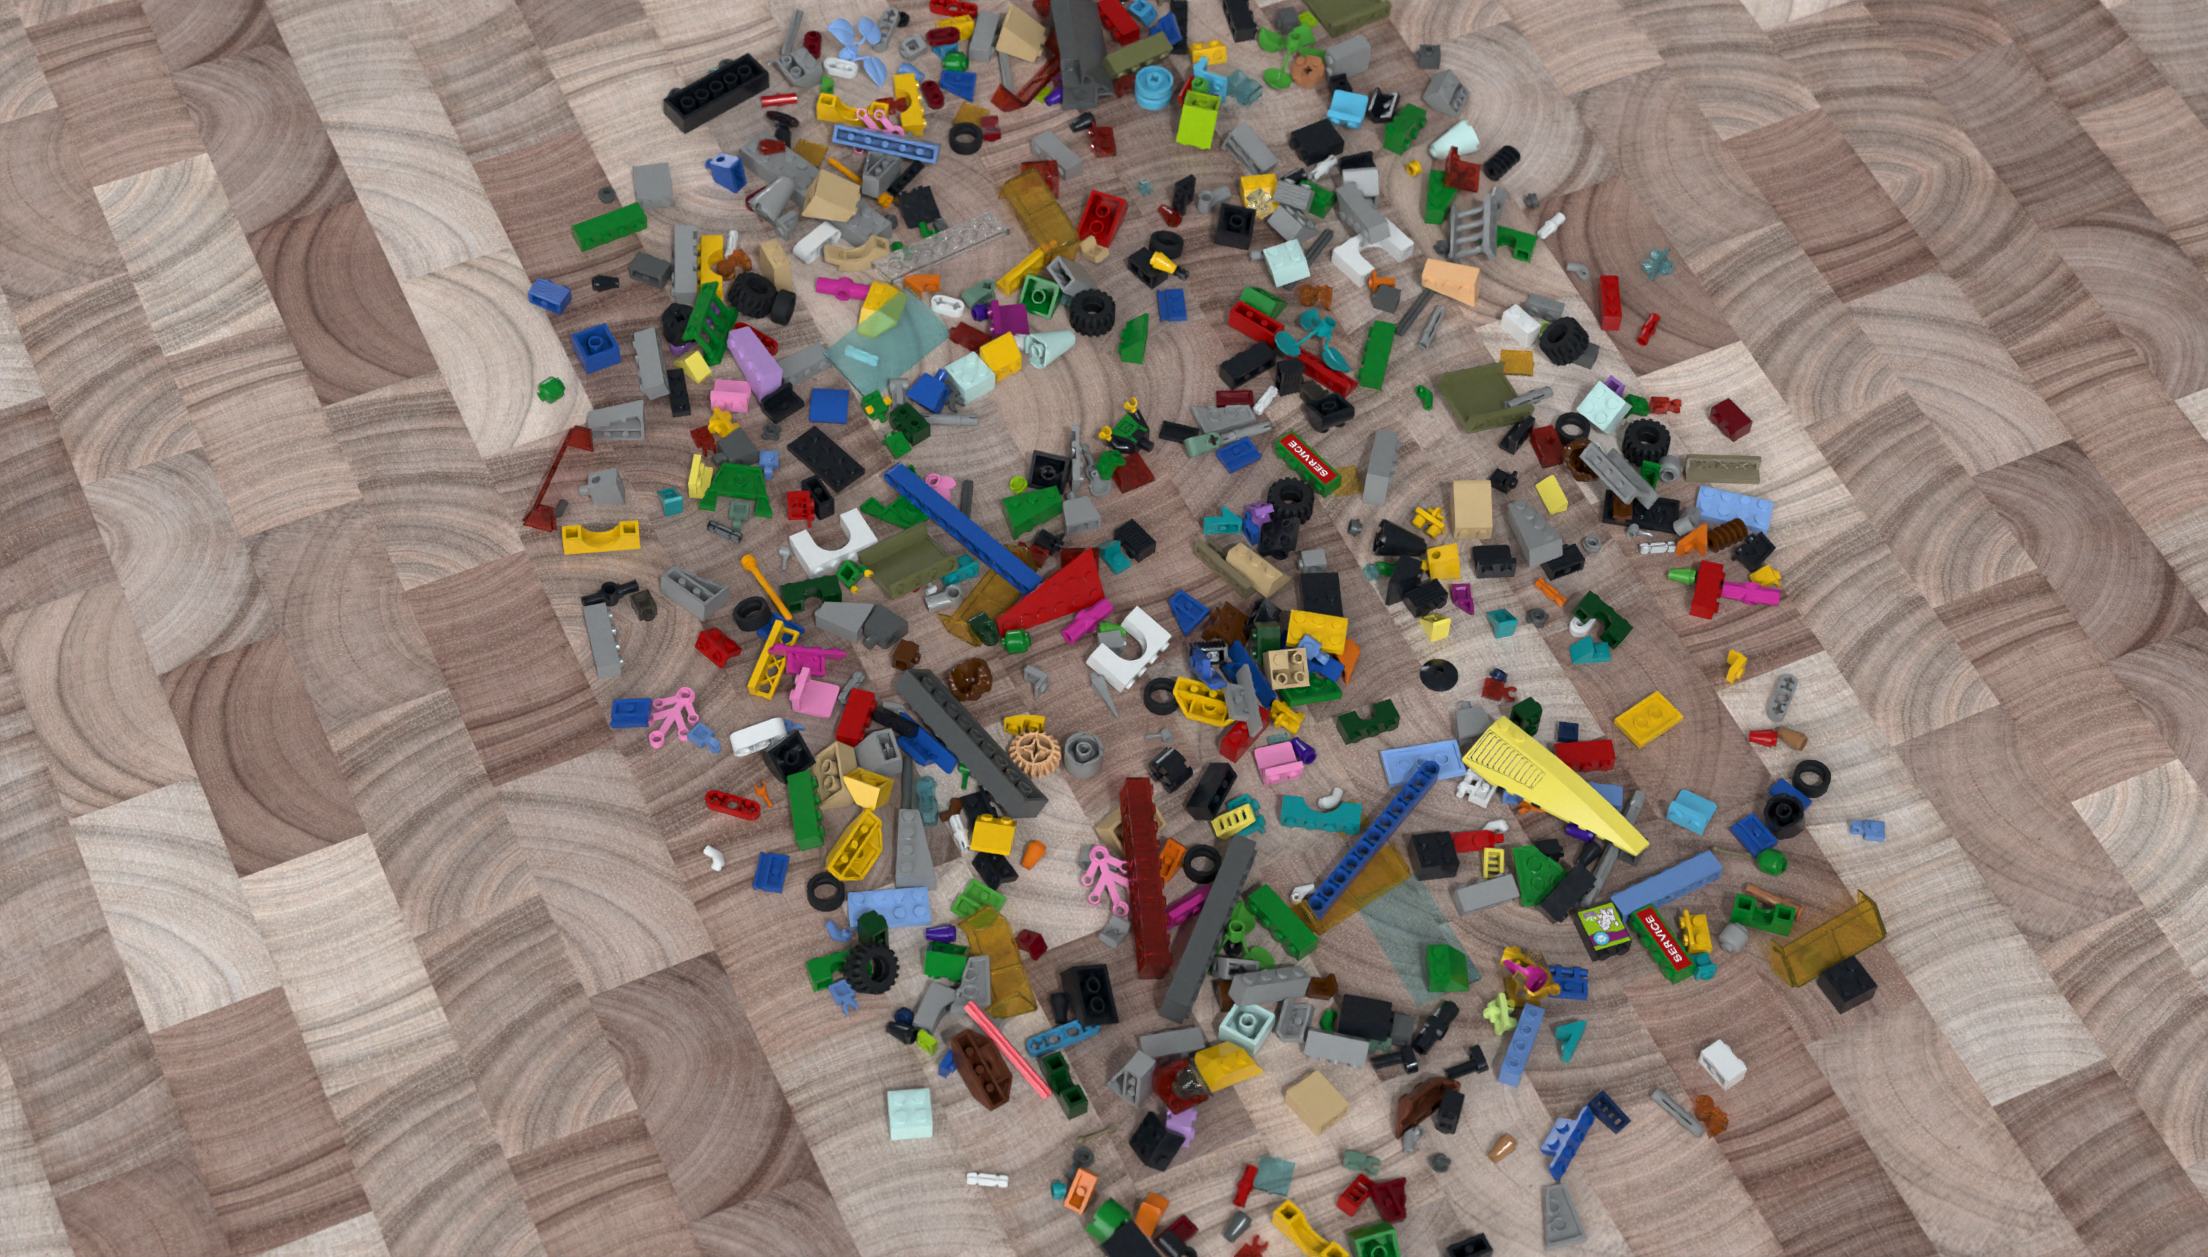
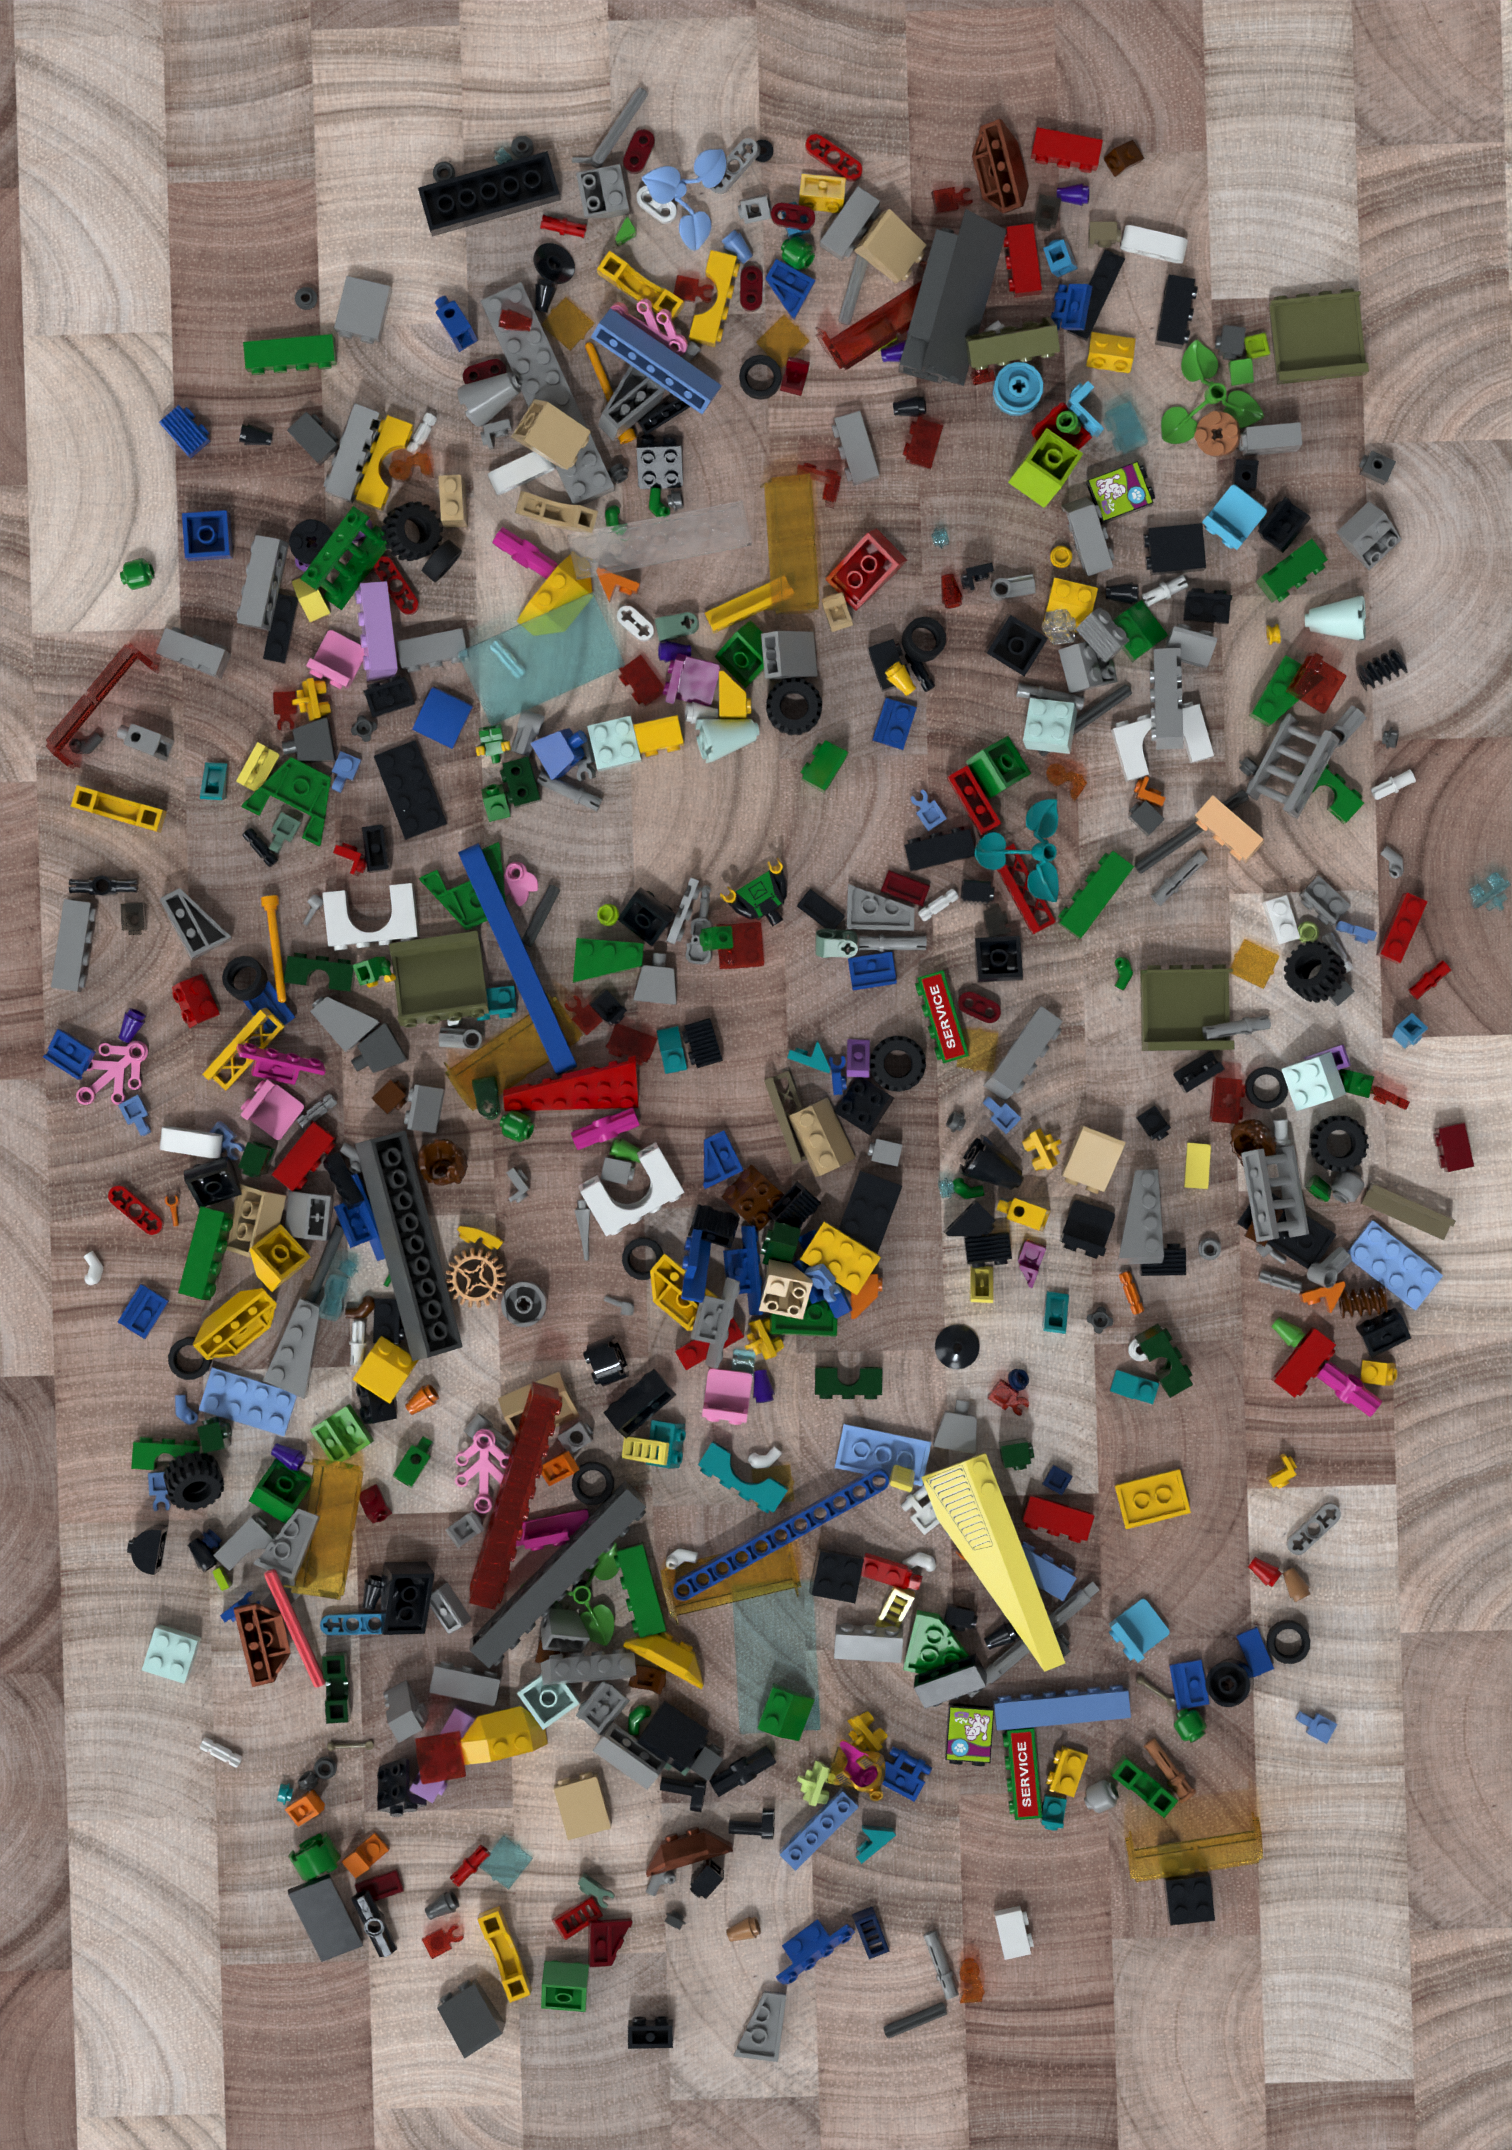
camera: 25 degrees right, 35 degrees up
(673, 677) = (132, 1022): none -> dark purple cone
(819, 720) = (256, 1159): none -> dark green arch
(854, 1036) = (148, 1549): none -> black brick
(937, 650) = (425, 1108): none -> light grey slope
(1043, 315) = (732, 699): none -> yellow slope
(1048, 891) = (409, 1472): none -> green torso
(1129, 1001) = (448, 1609): none -> light grey slope
(1169, 828) = (569, 1444): none -> light grey brick
(1190, 1083) = (454, 1763): clear smoke piece -> none
(1227, 347) = (929, 813): none -> medium blue plate
(1237, 171) = (1061, 556): none -> yellow plate
(1262, 118) = (1121, 492): none -> brick
(1322, 961) = (669, 1655): none -> yellow wedge
(1331, 449) = (979, 1006): none -> dark red plate
(1387, 511) = (1003, 1116): none -> medium blue plate
(1448, 763) = (902, 1478): none -> light yellow slope
(1583, 315) = (1361, 934): none -> medium blue plate
(1653, 358) = (1409, 1031): none -> dark azure brick
(1682, 1165) = (915, 2020): none -> dark grey axle

